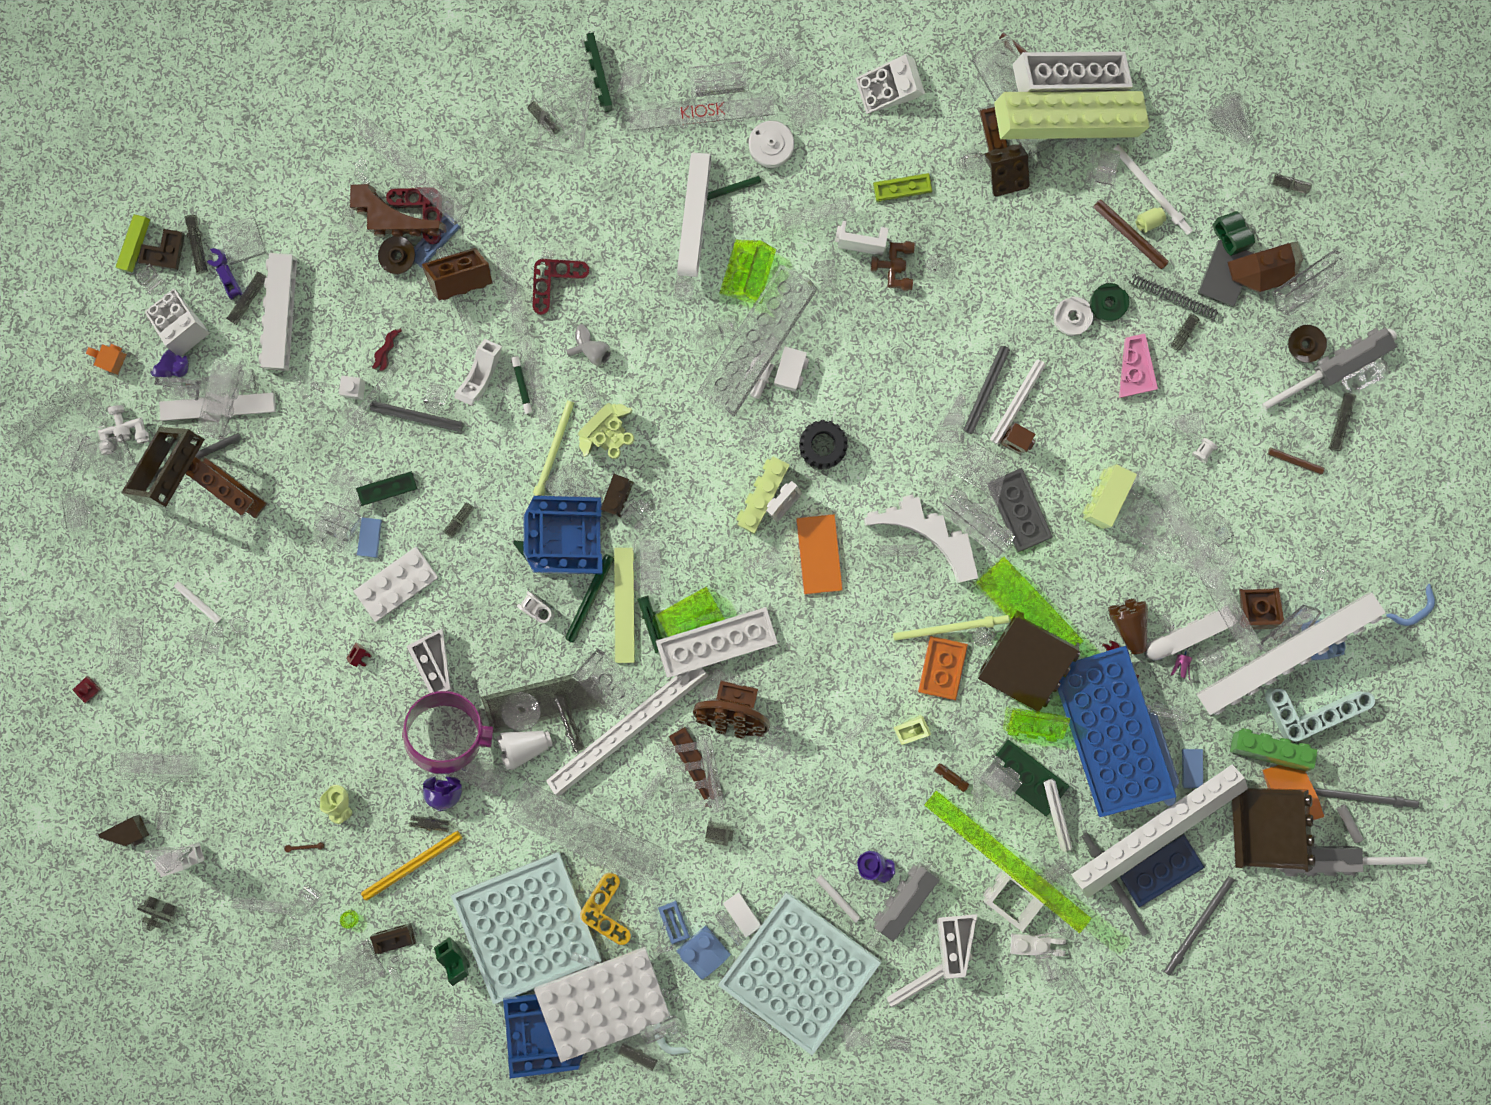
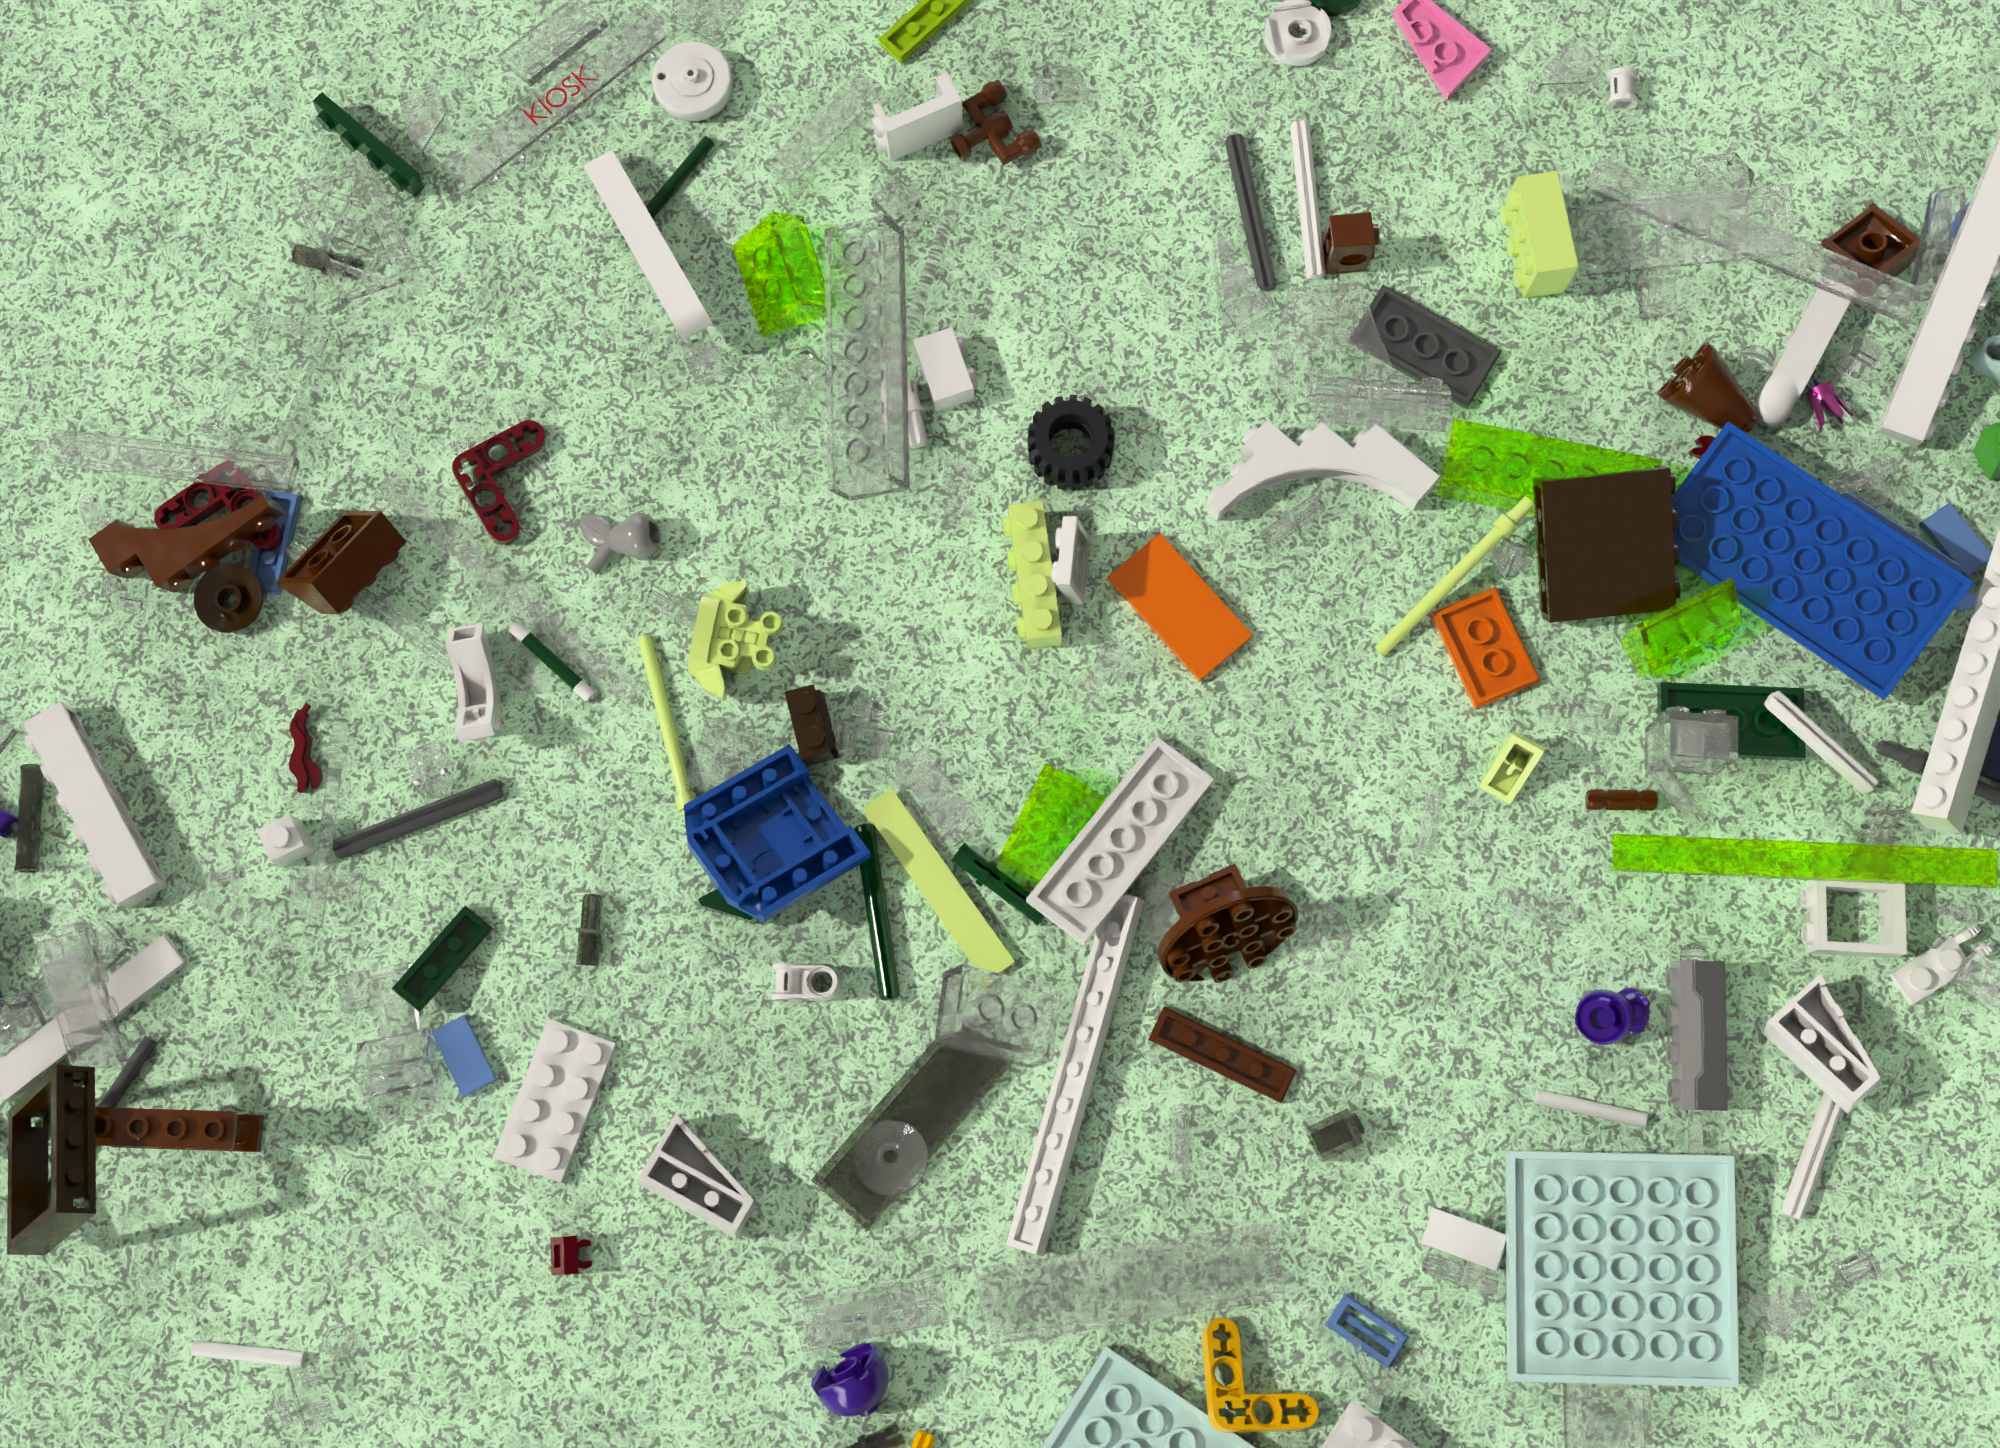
camera: 40 degrees left, 10 degrees down
(451, 699) = (770, 1217): magenta cylinder -> none
(522, 746) = (930, 1215): white cone -> none
(576, 743) = (989, 1133): clear smoke pin -> none
(703, 952) = (1448, 1346): medium blue slope -> none
(707, 763) = (1264, 1063): clear fence -> none
(1296, 461) = (1757, 21): reddish brown bar -> none

